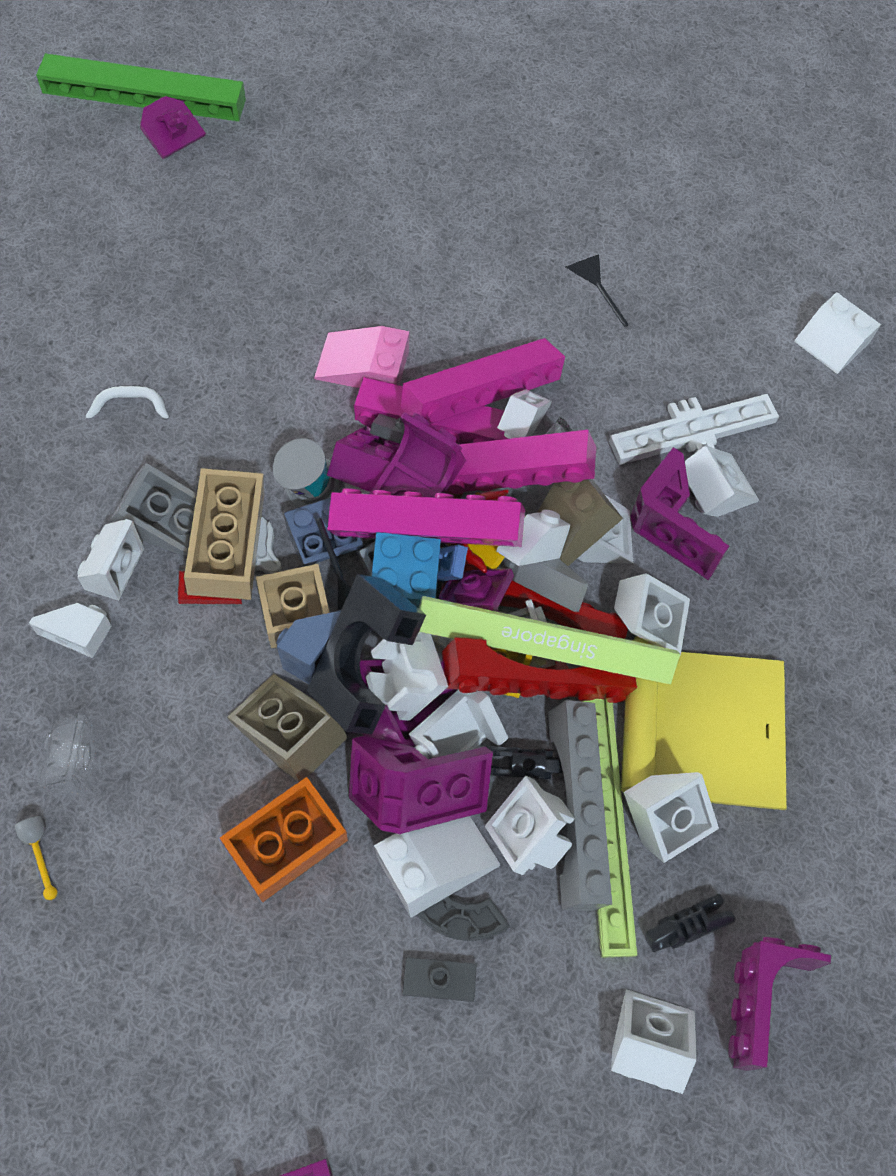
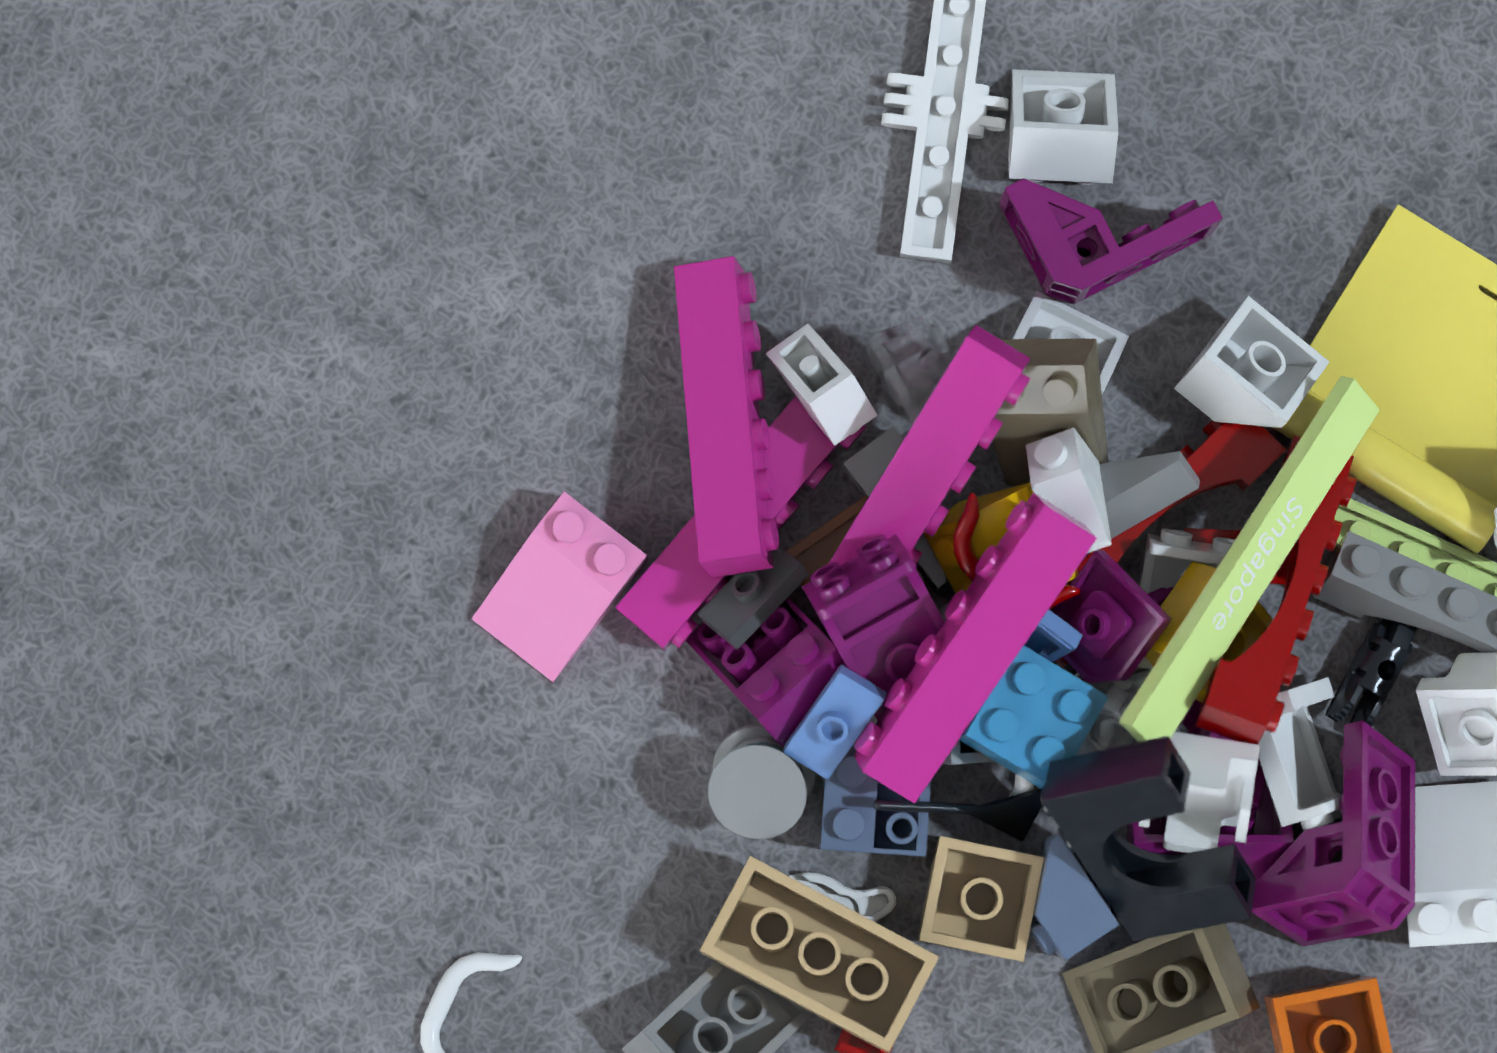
camera: 55 degrees left, 20 degrees up
(359, 476) = (834, 722): none -> medium blue plate
(590, 271) = (543, 102): black piece -> none

